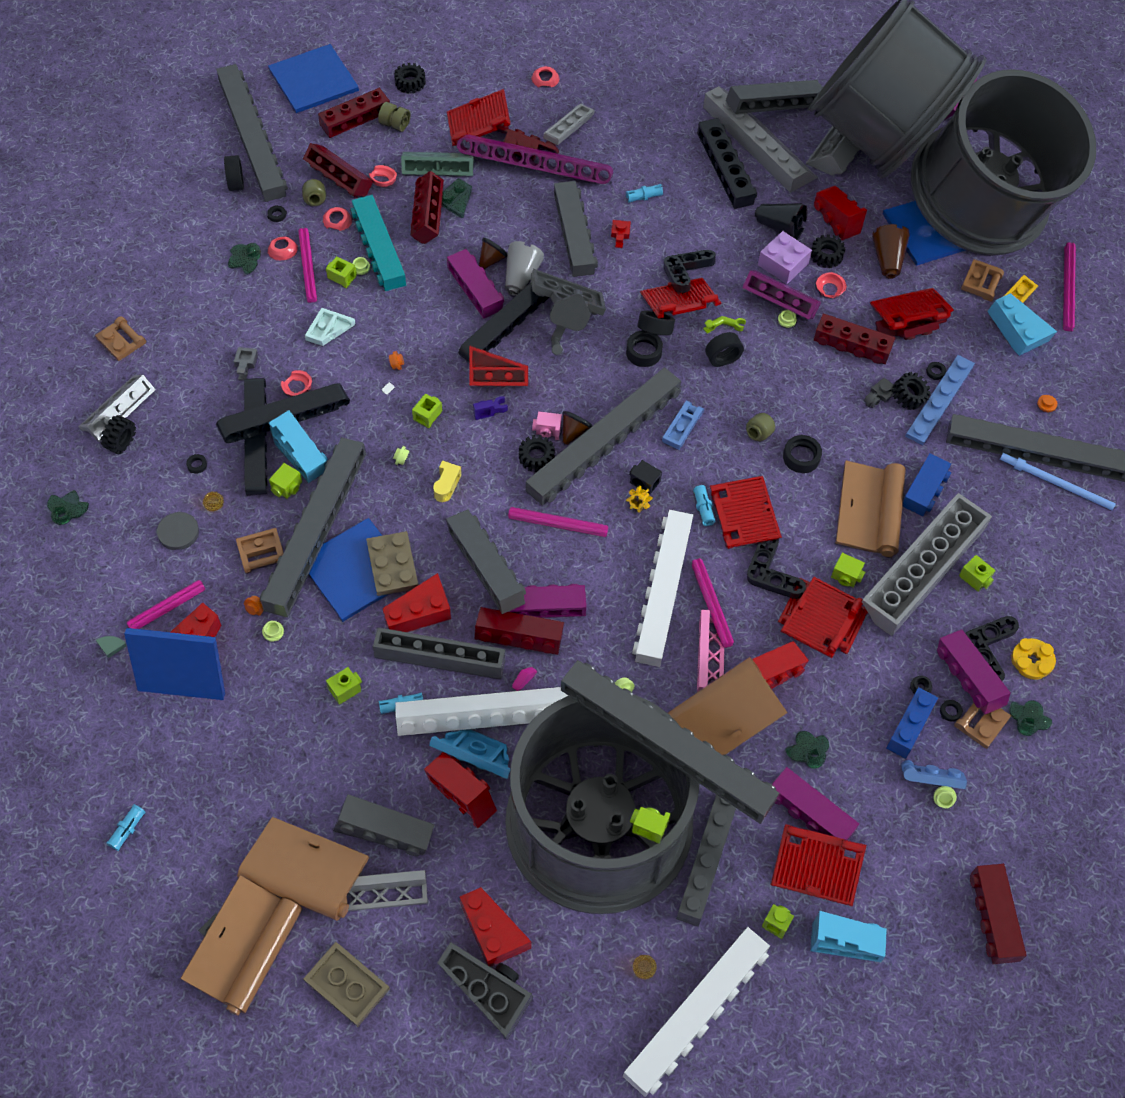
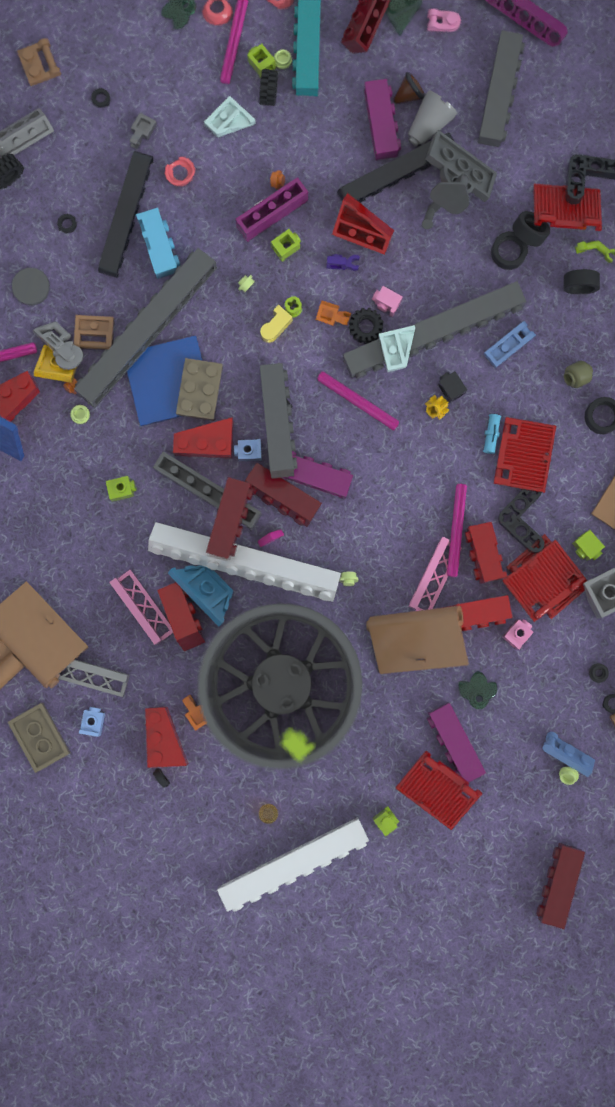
camera: 25 degrees right, 25 degrees up
(199, 352) = (100, 104): none -> black piece
(213, 501) = (69, 268): clear yellow plate -> none
(227, 569) = (66, 353): none -> light grey piece
(232, 589) = (48, 368): none -> yellow tile
(285, 481) = (136, 273): lime brick -> none
(302, 406) = (166, 201): black beam -> none
(357, 288) = (268, 87): none -> black tyre
(383, 826) = (108, 625): dark grey wedge -> none
(389, 705) = (163, 519): medium azure pin -> none
(401, 384) = (272, 209): none -> magenta brick
(403, 949) = (98, 716): none -> light blue brick
(411, 803) = (136, 611): none -> bright pink fence
(457, 457) = (289, 302): none -> lime bush
(469, 607) = (255, 453): none -> light blue brick
(475, 664) = (229, 518): none -> dark red brick
(489, 990) = (140, 786): dark grey wedge -> none
(495, 454) = (329, 314): none -> orange plate
(503, 195) = (450, 21): none -> bright pink plate
(519, 888) = (195, 714): none -> orange plate
(573, 426) = (410, 310): reddish brown hat -> none
(576, 456) = (396, 347): none -> light aqua wing
(620, 231) = (544, 107): red plate -> none
(644, 193) = (587, 70): medium azure pin -> none
(664, 588) = (422, 500): white brick -> none
(669, 741) = (342, 680): dark grey brick -> none
(706, 862) = (354, 749): dark grey brick -> none
(752, 613) = (484, 553): none -> red wedge
(822, 683) = (512, 637): none -> bright pink brick
(848, 937) = (434, 857): medium azure wedge -> none
(912, 723) = (573, 704): blue brick -> none

